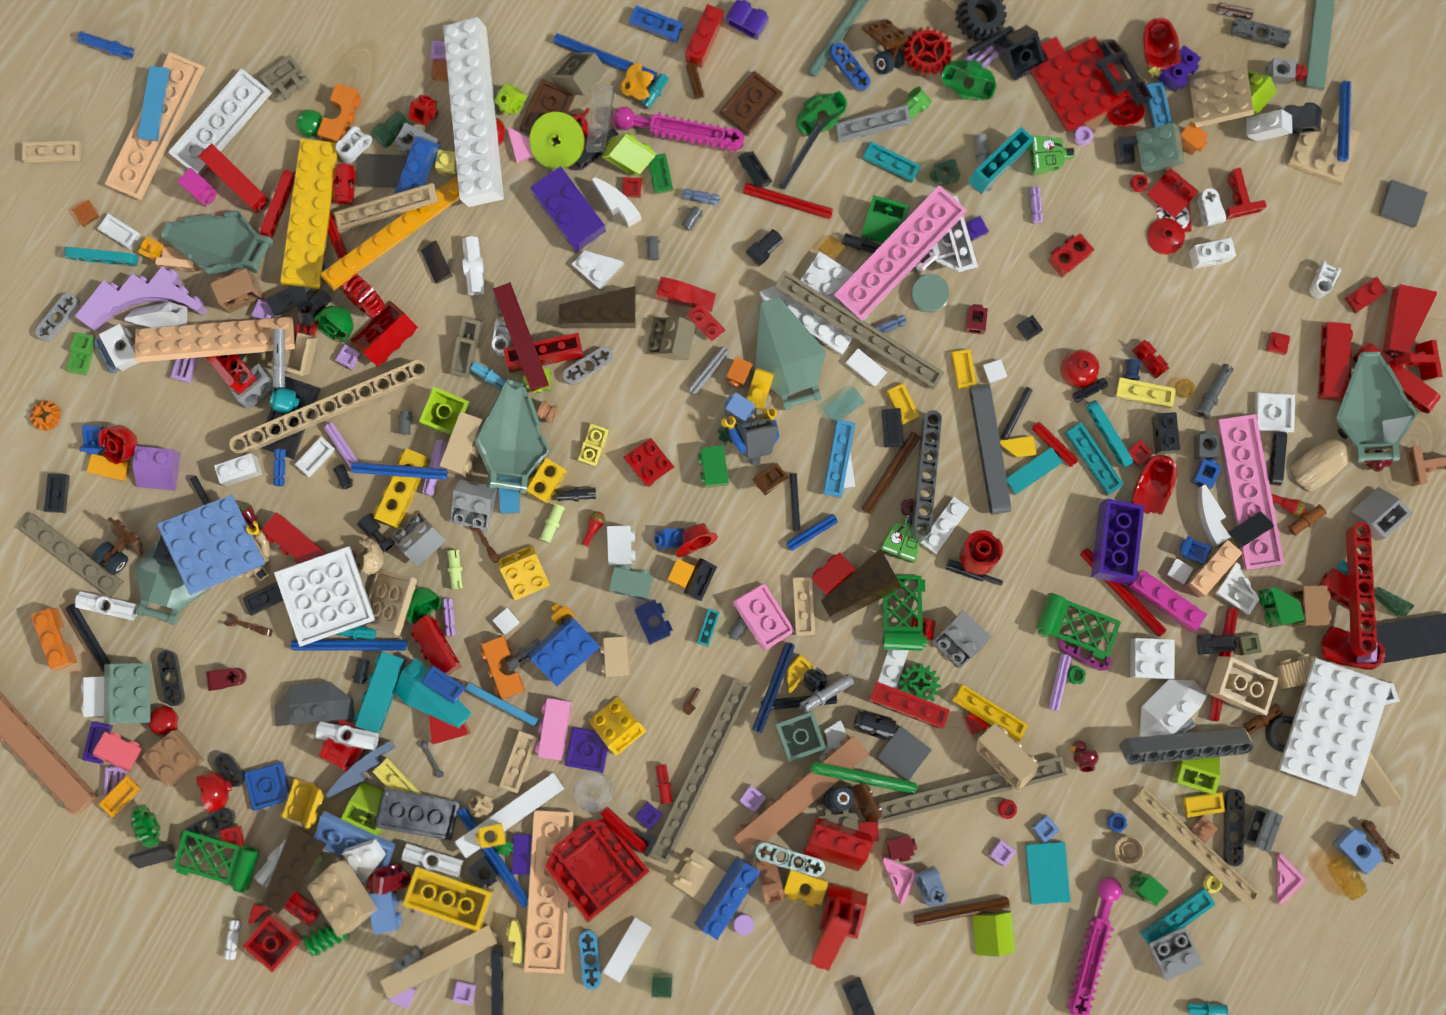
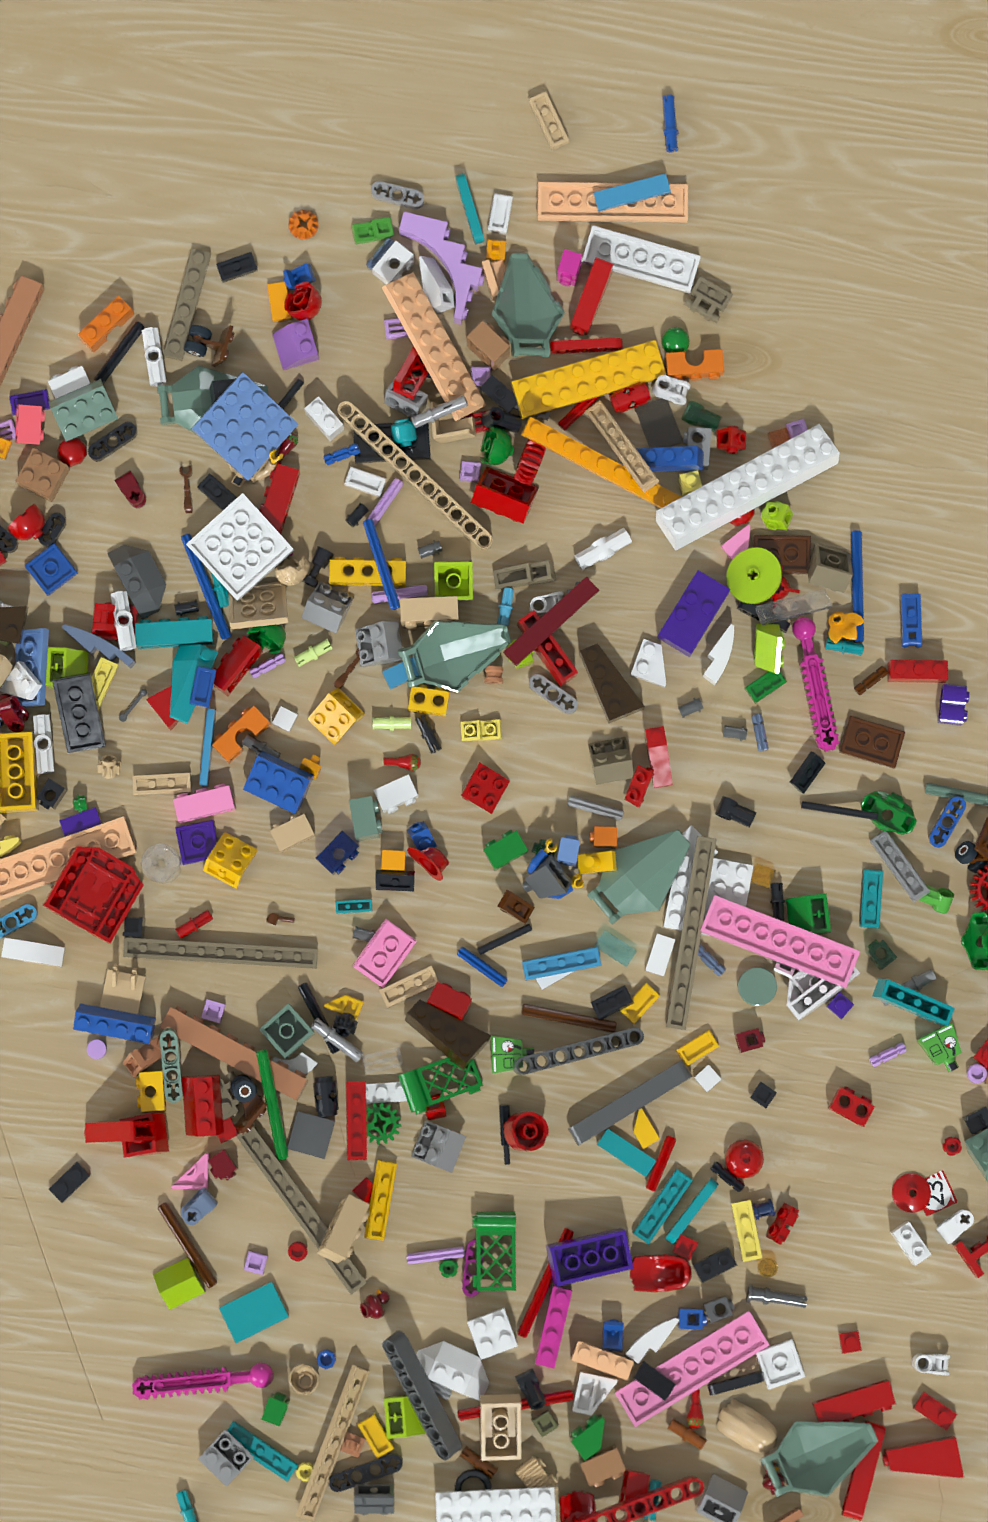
camera: 70 degrees right, 0 degrees up
(86, 213) = (505, 176): clear orange tile -> none
(302, 802) = (48, 606): yellow bracket -> none
(436, 262) = (592, 513): black slope -> none
(496, 861) = (68, 797): blue axle -> none
(500, 837) = (92, 792): yellow brick -> none
(512, 813) = (110, 796): white tile -> none
(627, 832) = (138, 905): red axle -> none
(632, 187) = (742, 664): red tile -> none
(648, 815) = (160, 922): dark purple tile -> none
(662, 985) = (13, 996): clear green brick -> none
(773, 687) = (322, 988): dark blue axle -> none
(788, 201) = (791, 819): red axle -> none
(904, 510) = (543, 1043): dark red plate -> none
(945, 525) = (540, 1089): white plate -> none
(1016, 414) = (675, 1115): black bar -> none
(1045, 828) = (293, 1294): medium blue tile -> none
(1172, 193) = (956, 1182): red hinge -> none
(1179, 571) = (587, 1329): white tile -> none
(1426, 358) = (894, 1492): red bracket -> none

